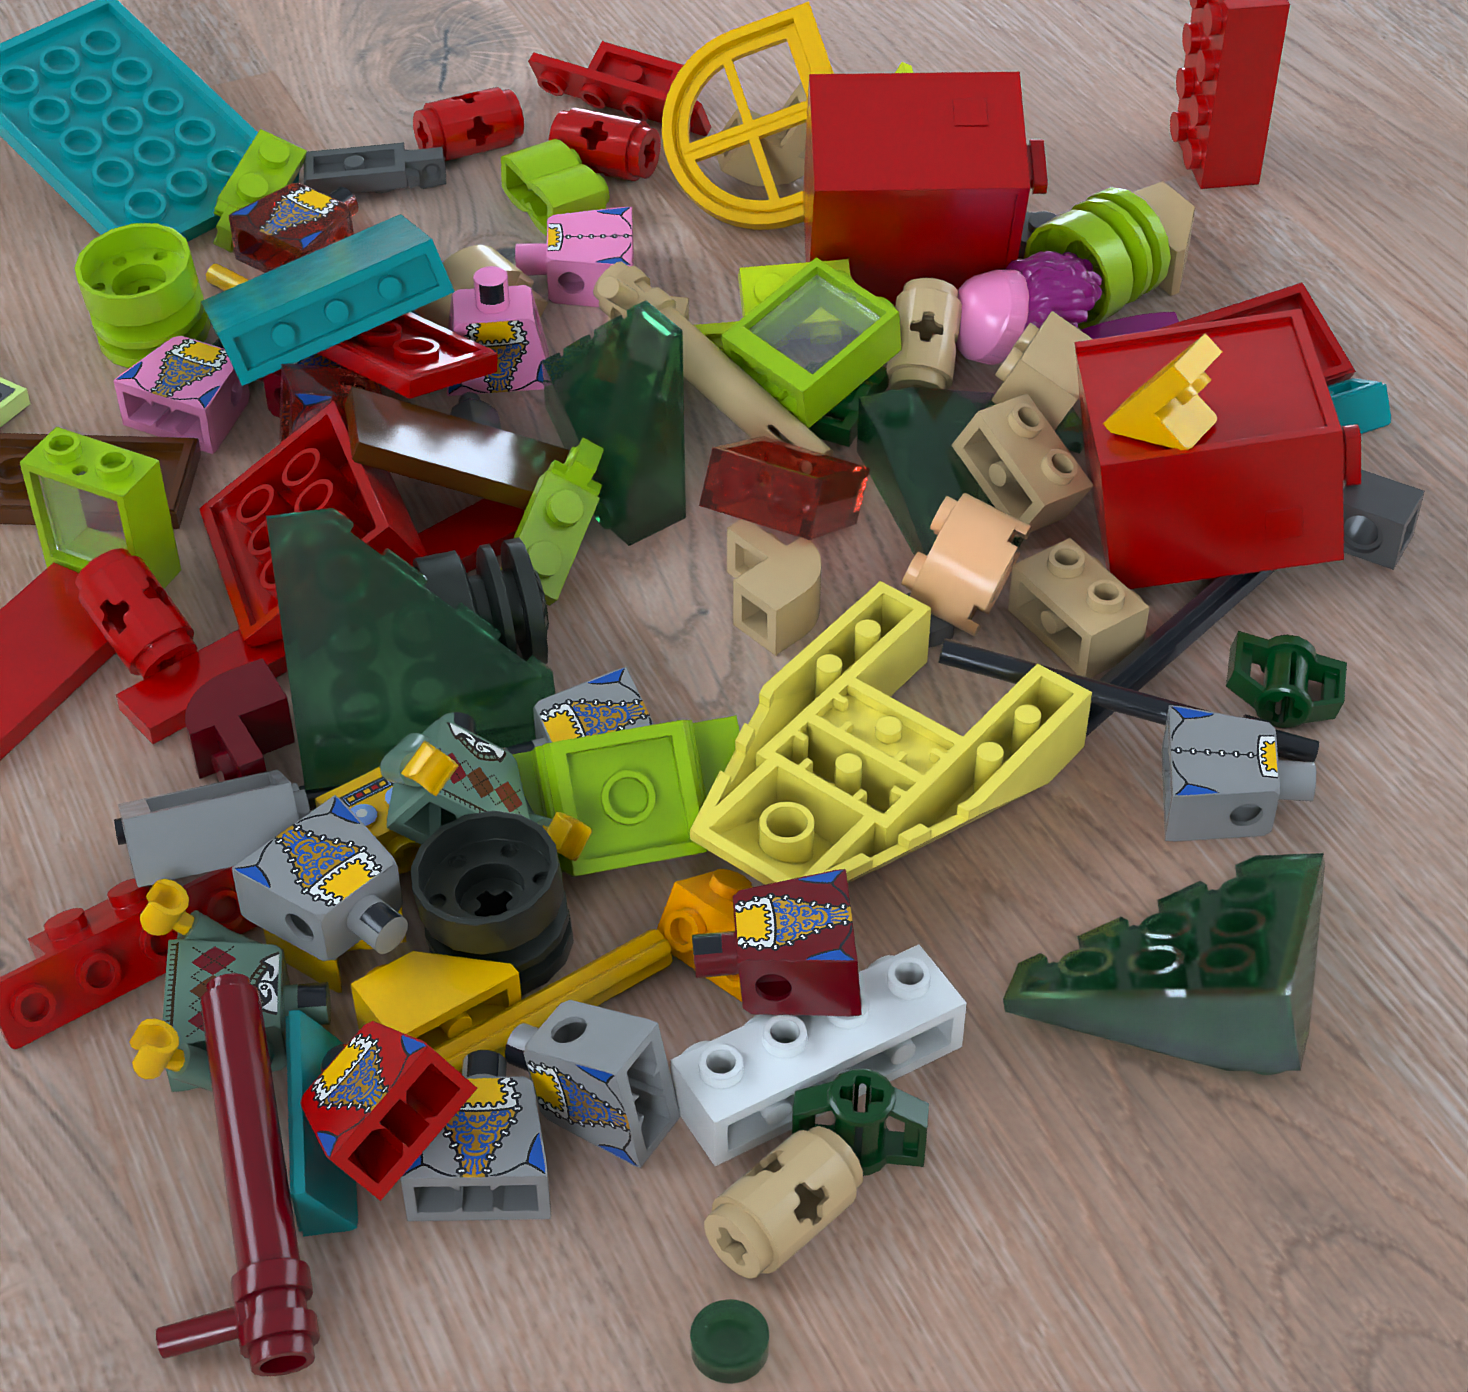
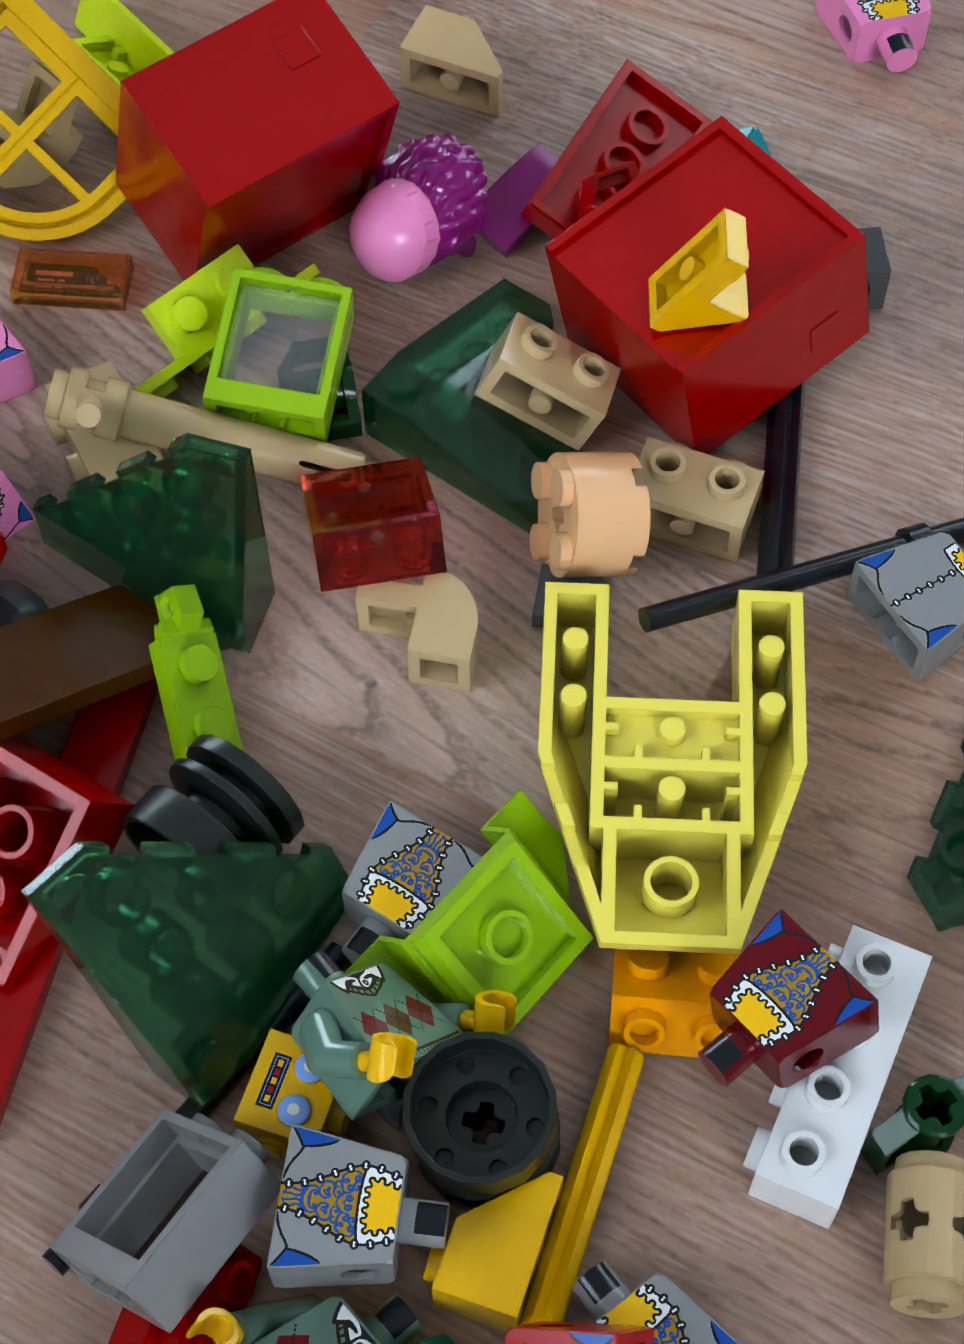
camera: 35 degrees left, 15 degrees up
(237, 722) = (66, 1082): dark red brick -> none
(600, 1077) = (725, 1230): light grey torso -> none
(717, 248) = (72, 279): none -> clear orange tile
(930, 313) = (355, 261): tan piece -> none
(1044, 368) = (499, 270): tan brick -> none
(1118, 238) = (444, 93): lime wheel -> none
(1287, 668) = (895, 463): dark green piece -> none

